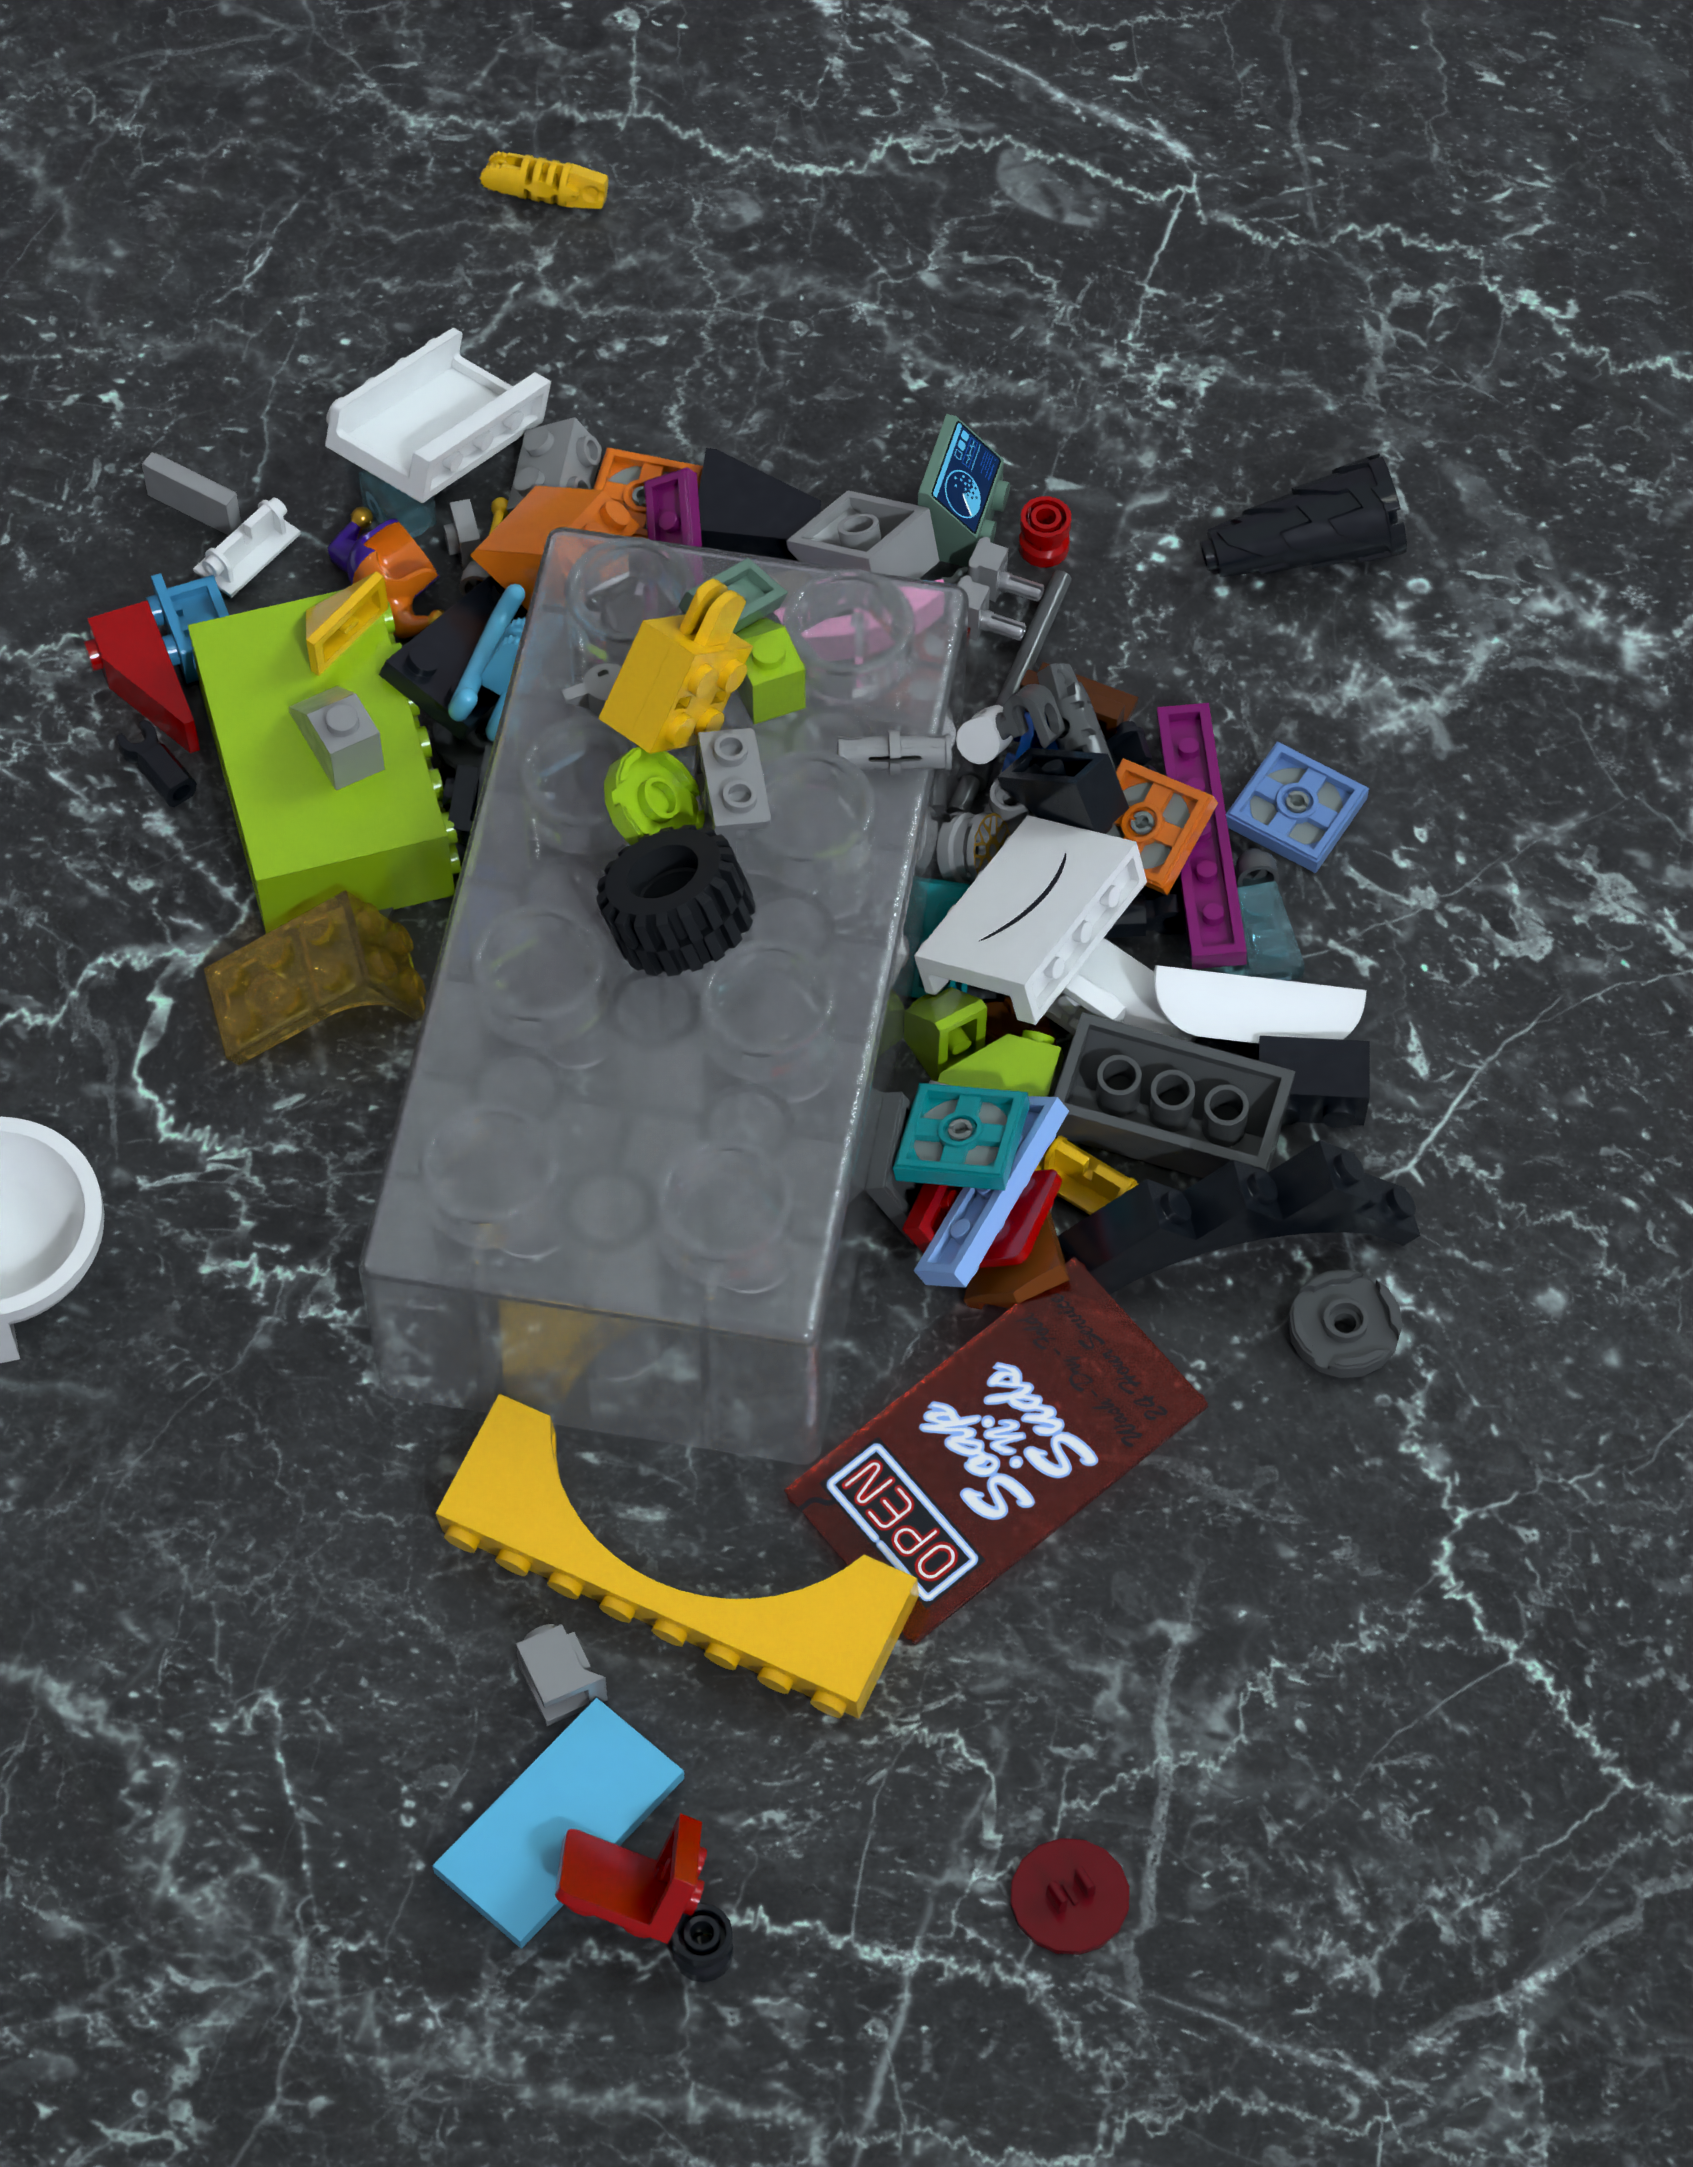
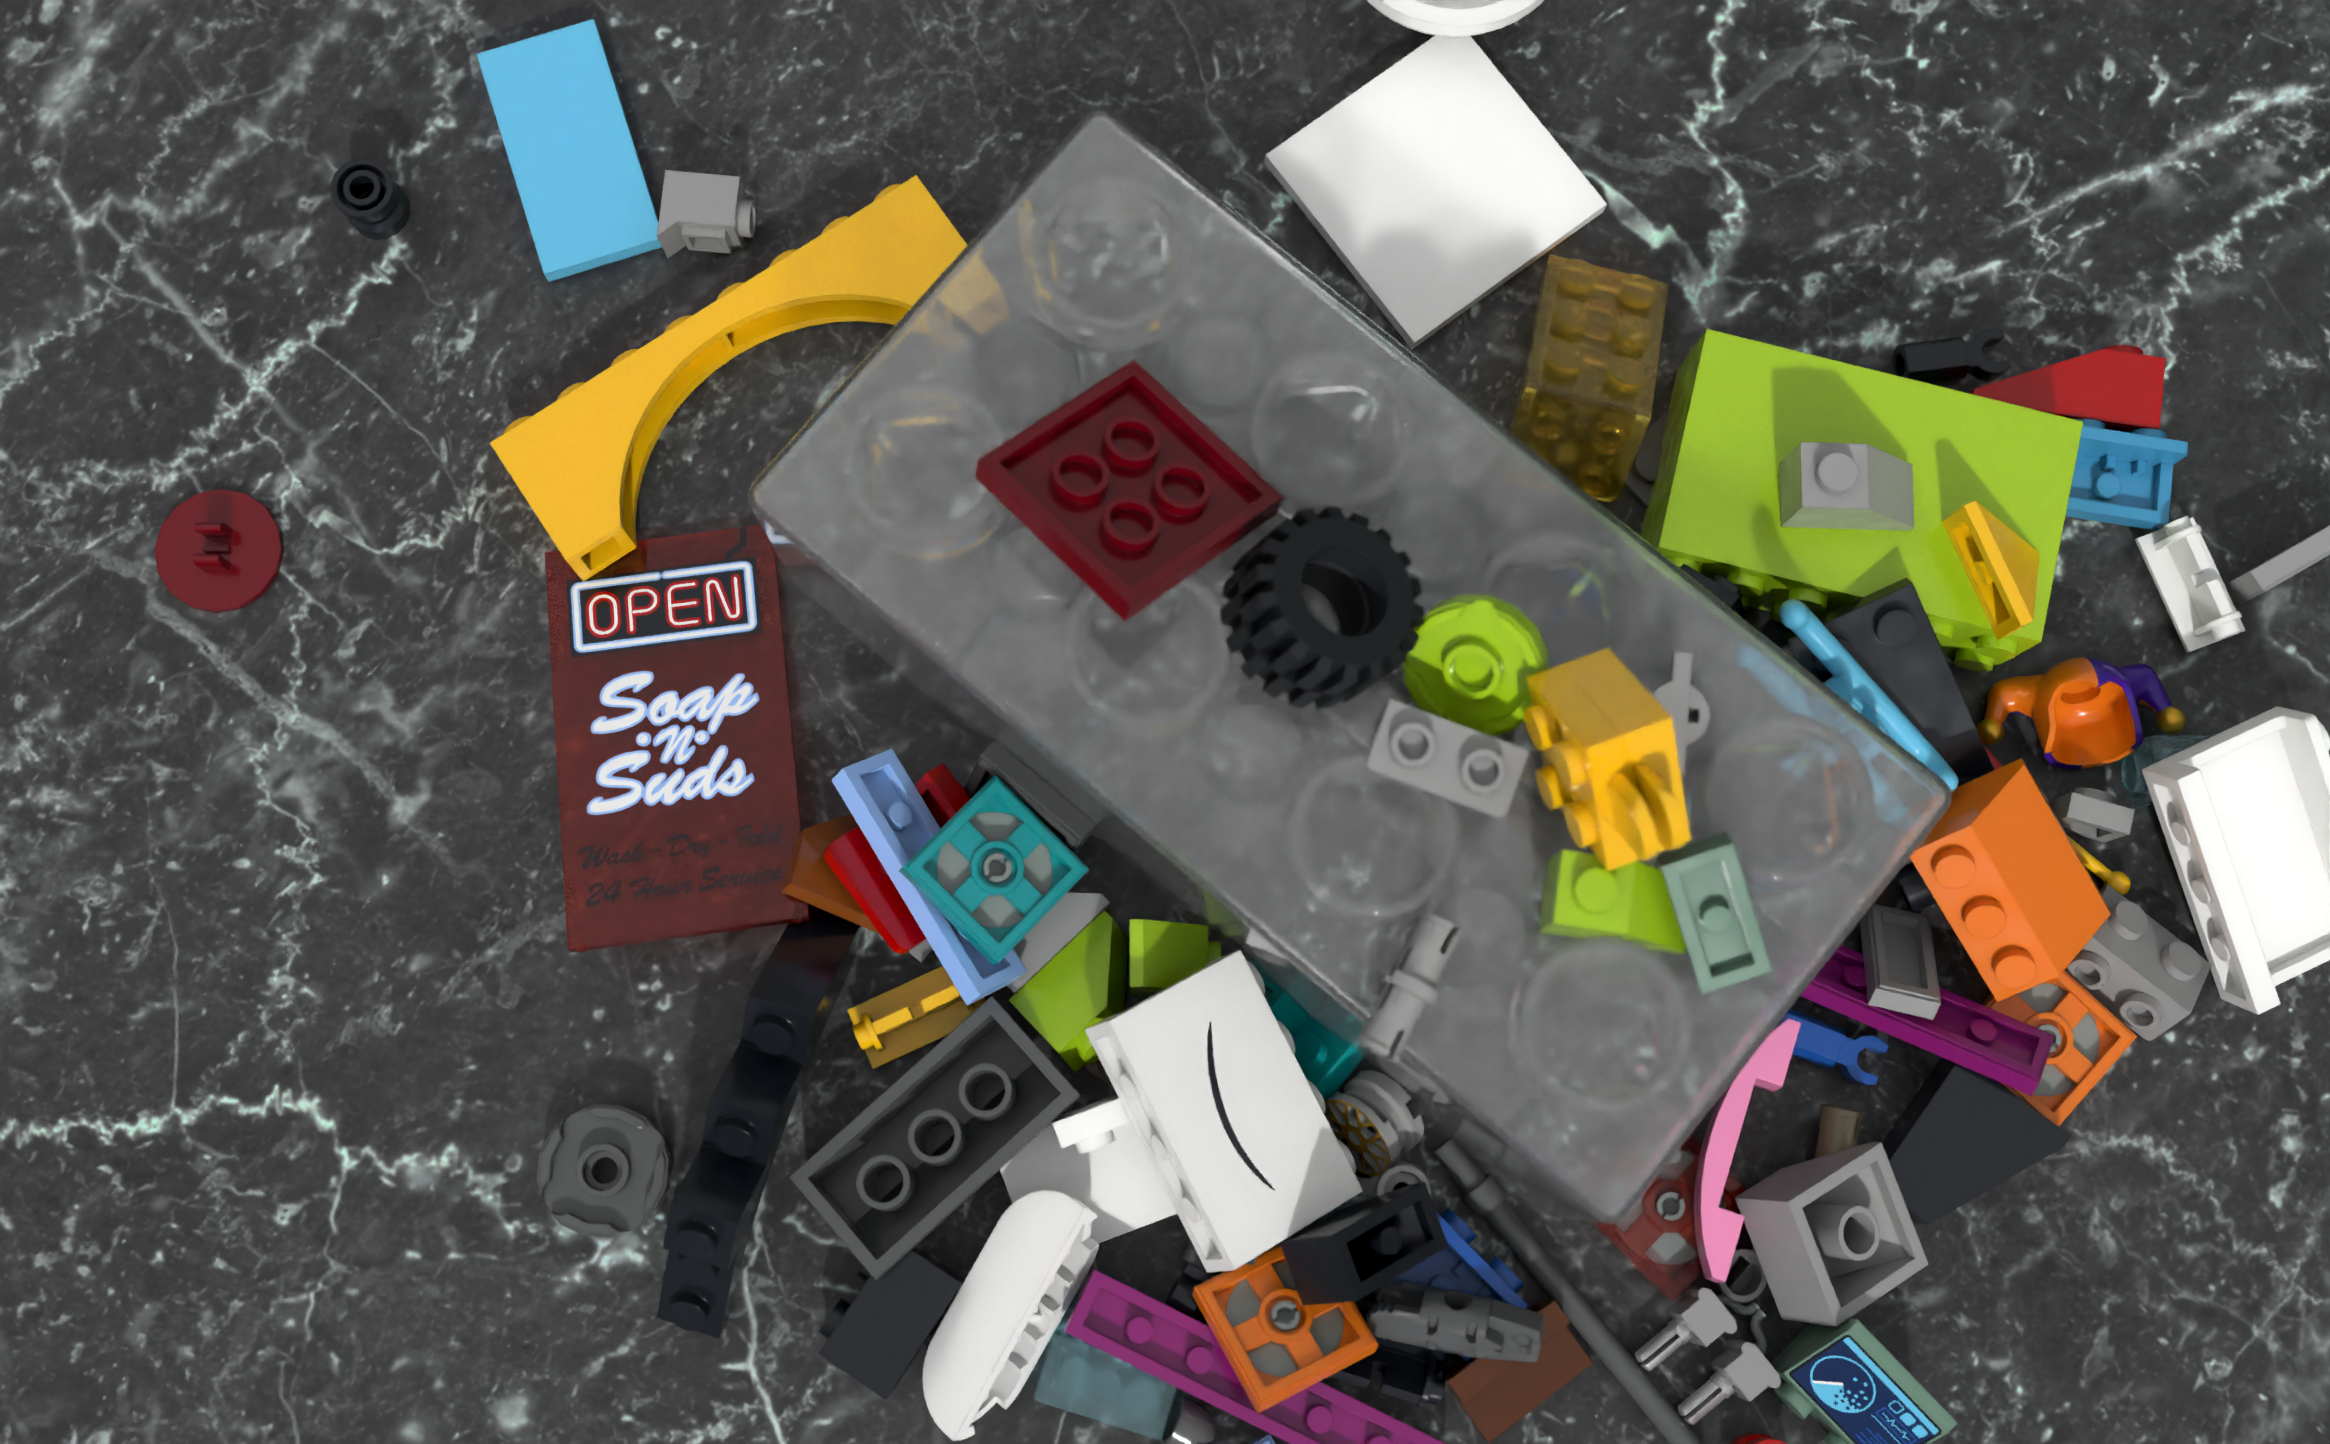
camera: 115 degrees right, 20 degrees up
(215, 1167) = (1434, 184): none -> white tile
(632, 1888) = (448, 150): red bracket -> none
(663, 1057) = (1128, 489): none -> dark red plate
(995, 726) = (1500, 1226): leg -> none

